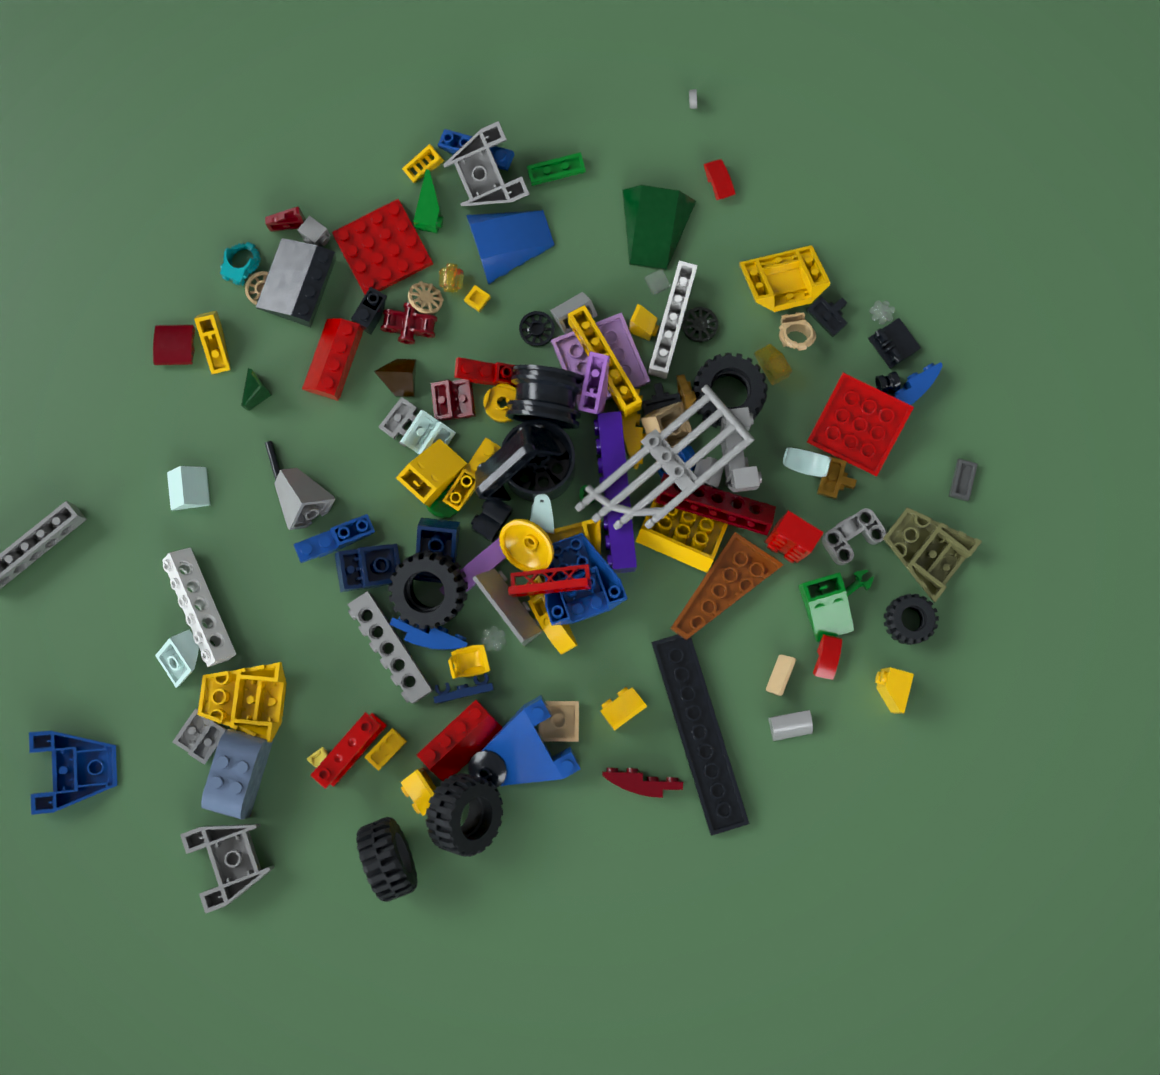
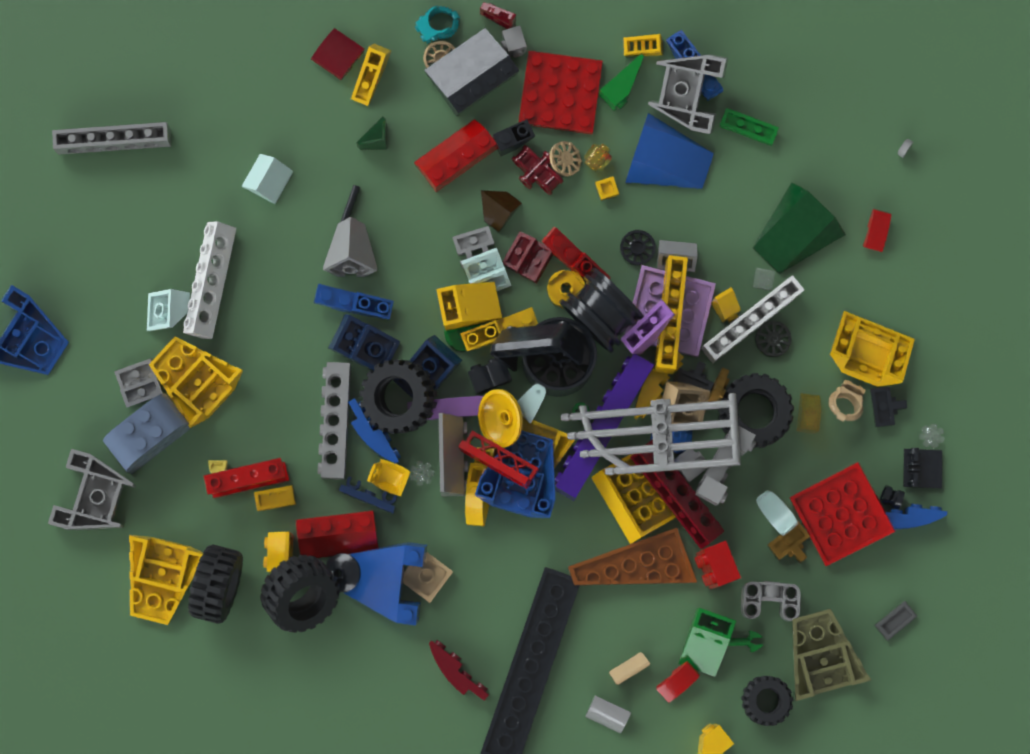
camera: 30 degrees right, 0 degrees up
(334, 887) = (159, 576): none -> yellow wedge
(622, 708) = (483, 602): yellow slope -> none

